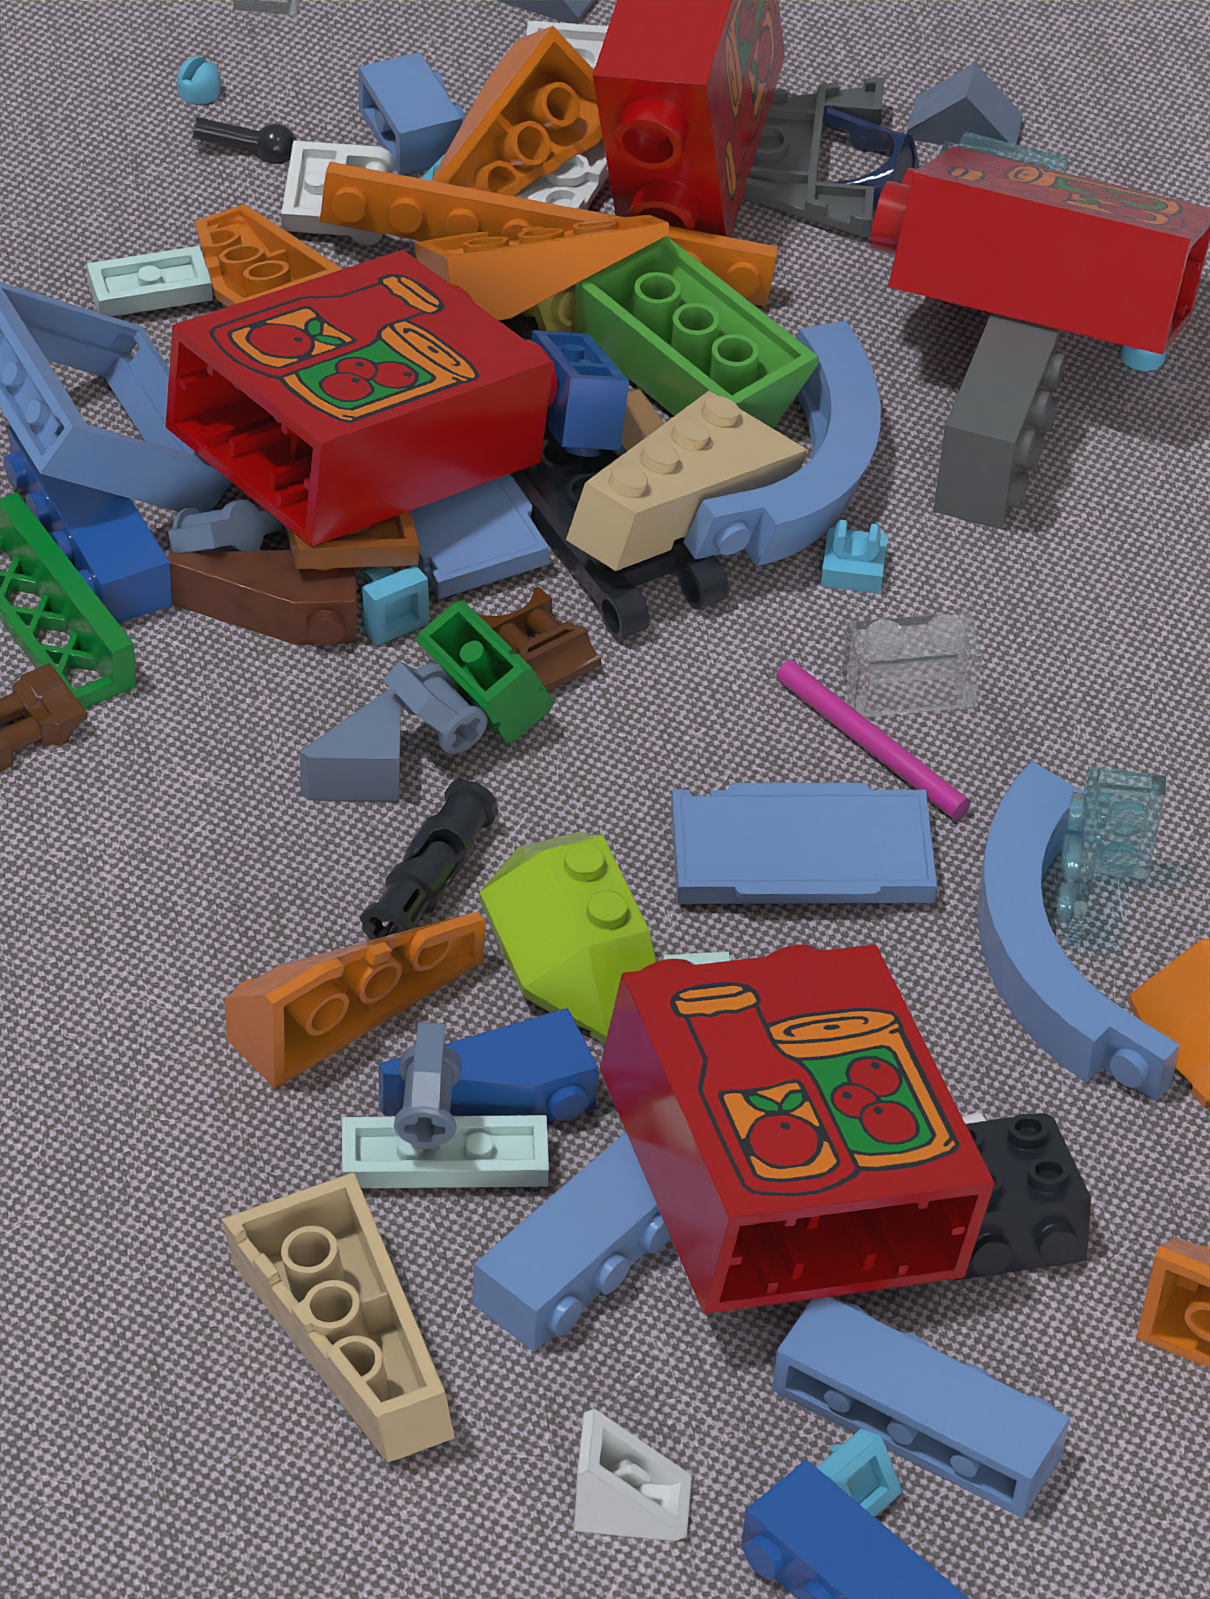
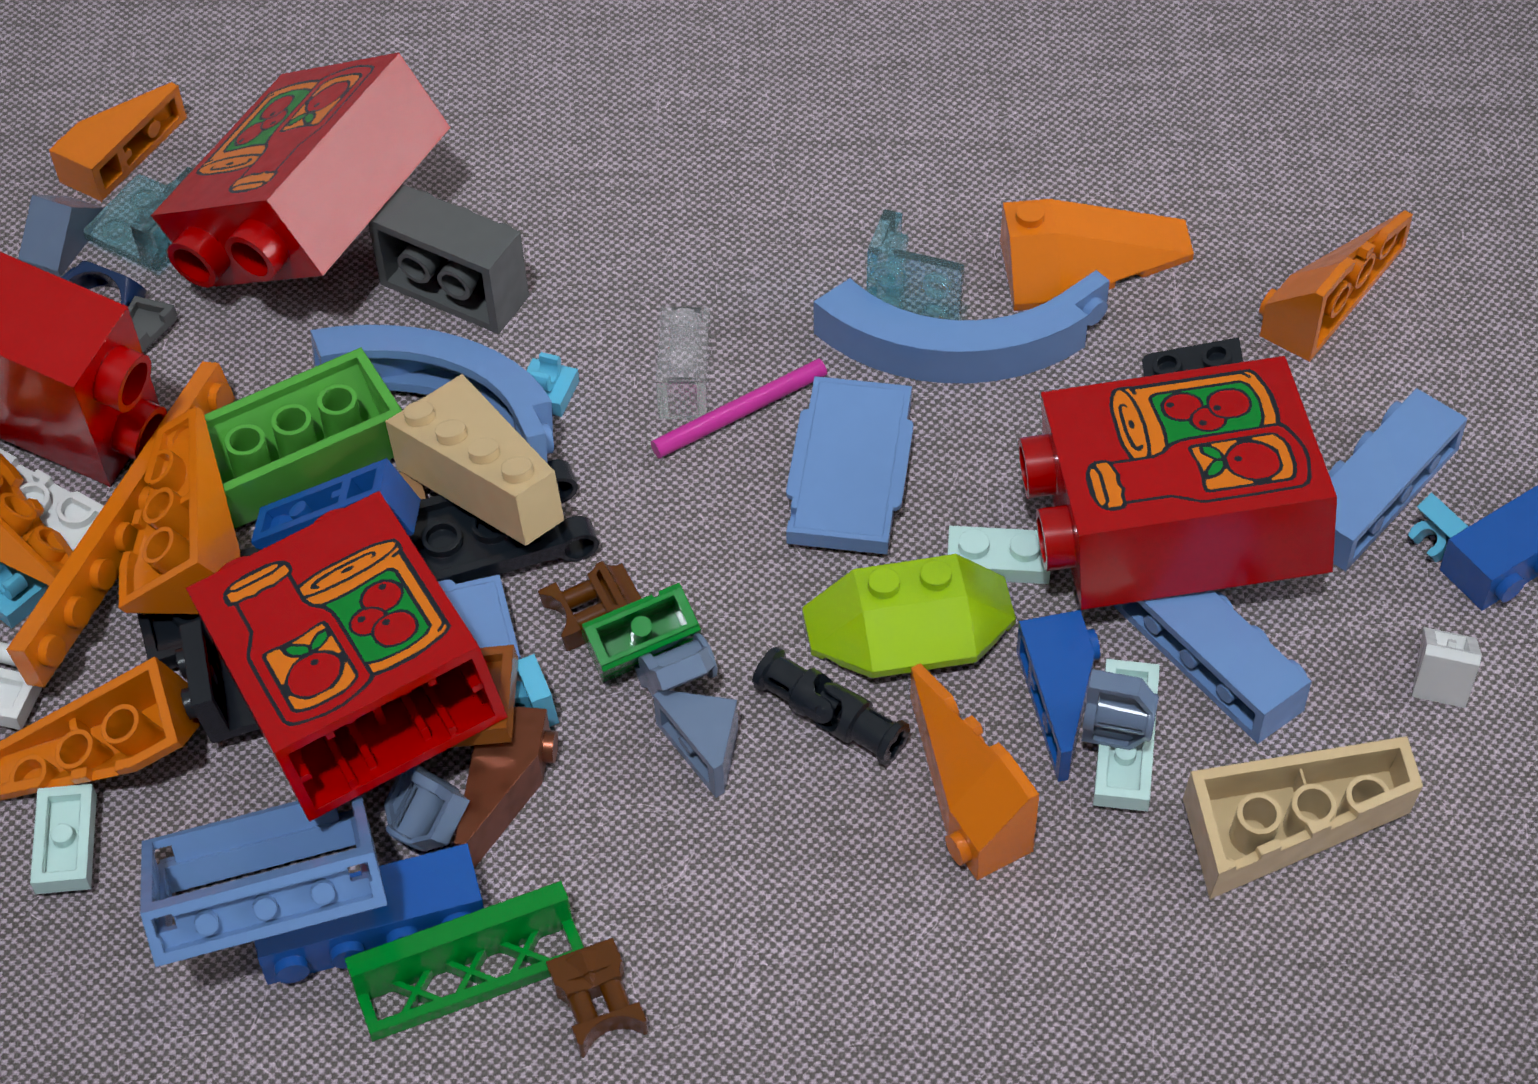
camera: 75 degrees left, 5 degrees up
(1112, 129) = (116, 141): none -> orange slope

